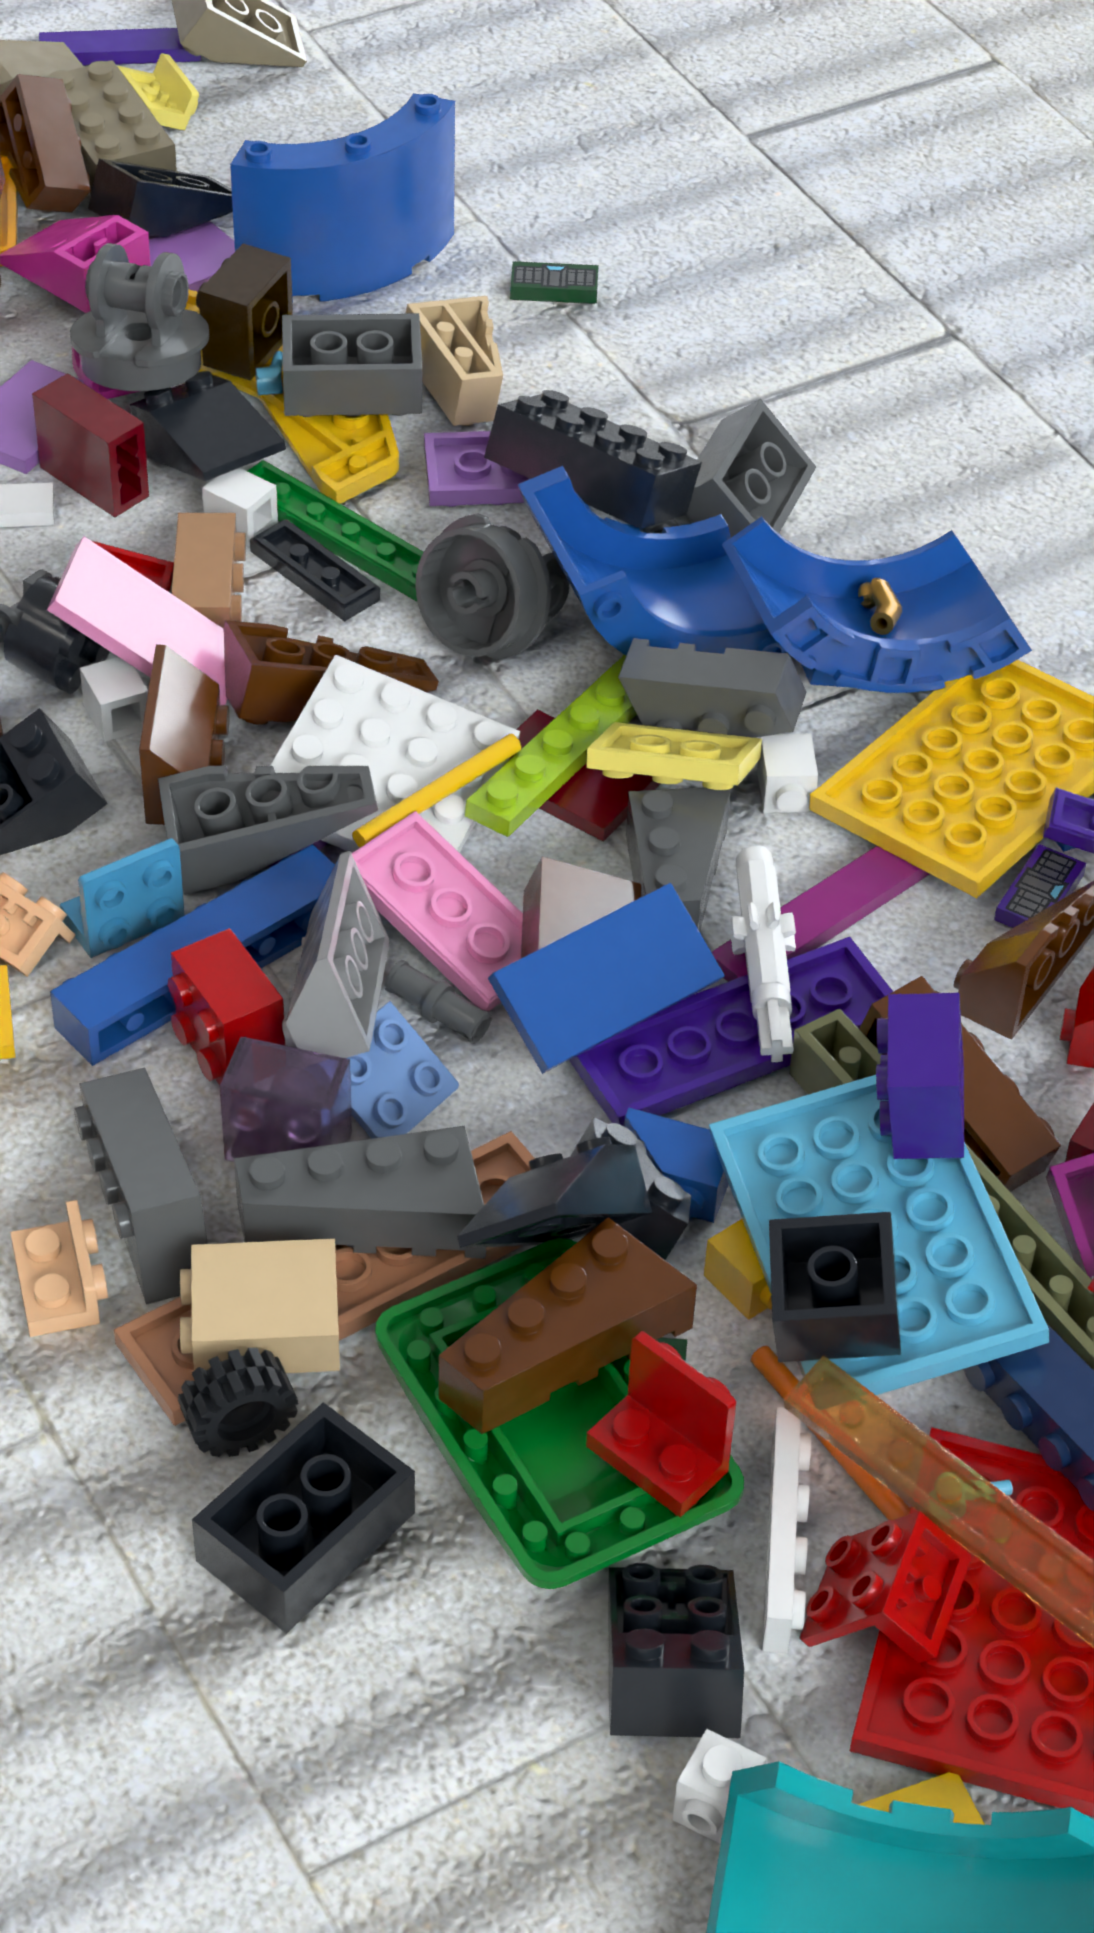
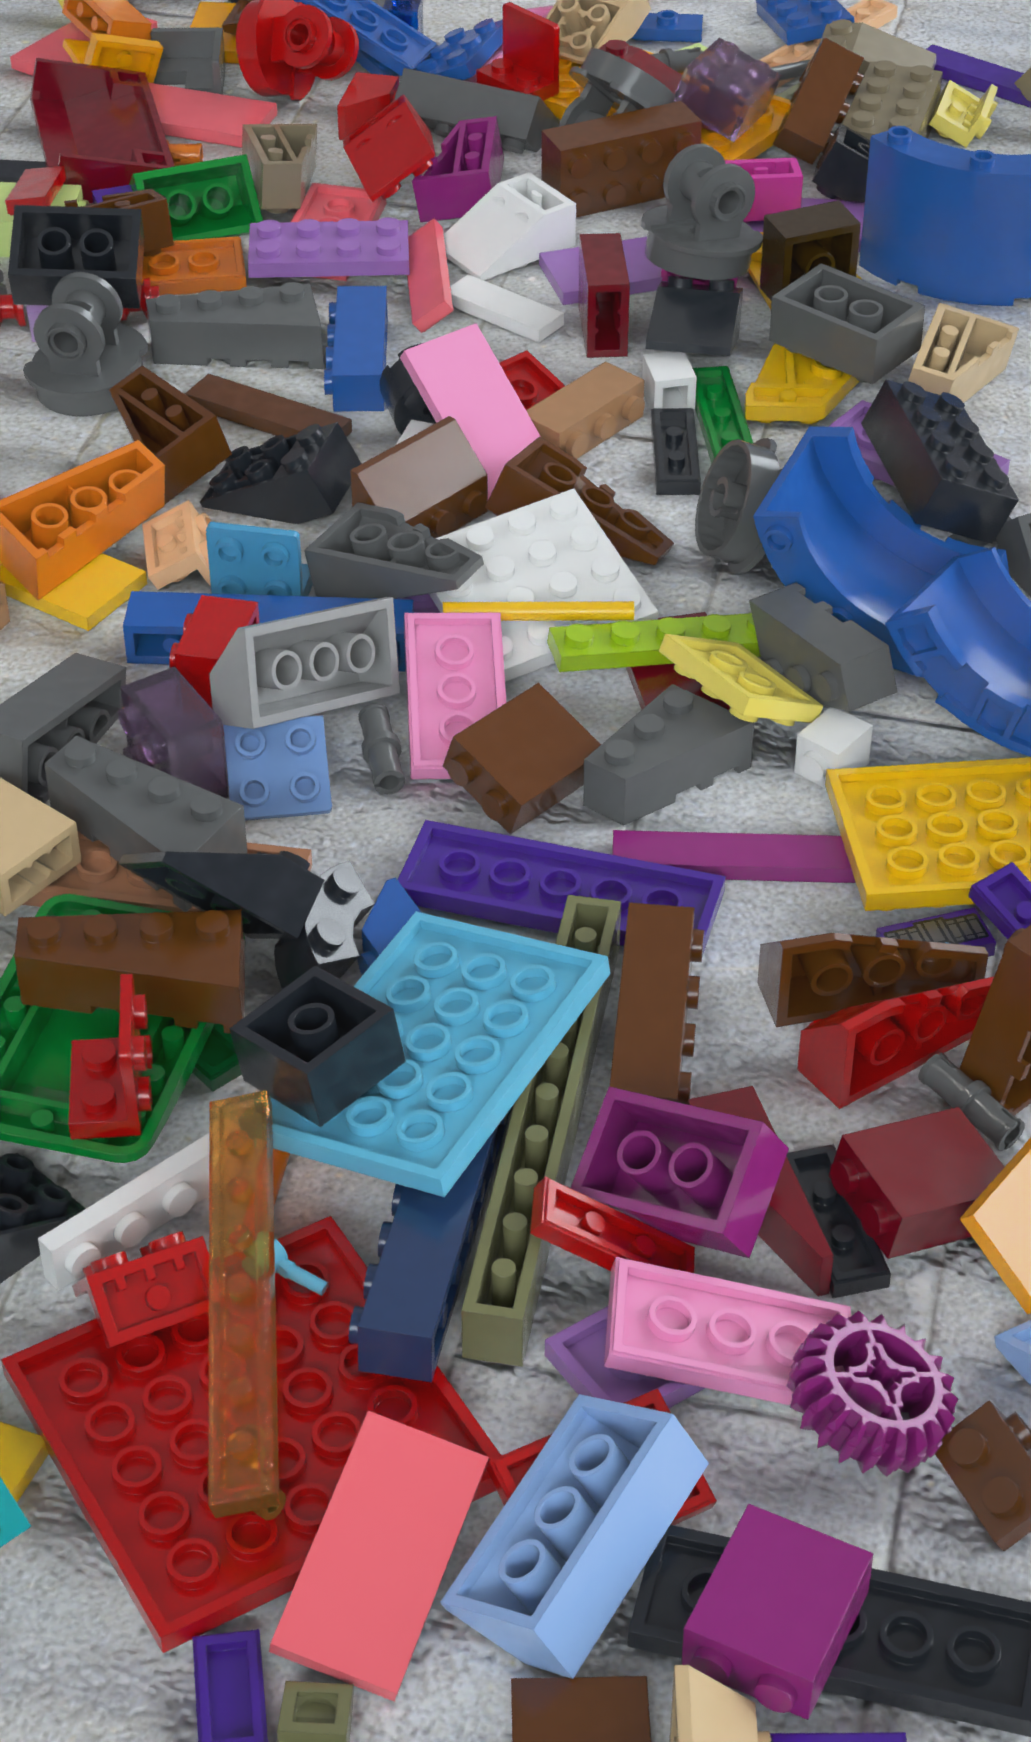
camera: 45 degrees right, 5 degrees down
(605, 977) = (487, 786): blue tile -> none
(764, 939) = (647, 834): white piece -> none
(922, 1075) = (553, 946): dark purple brick -> none

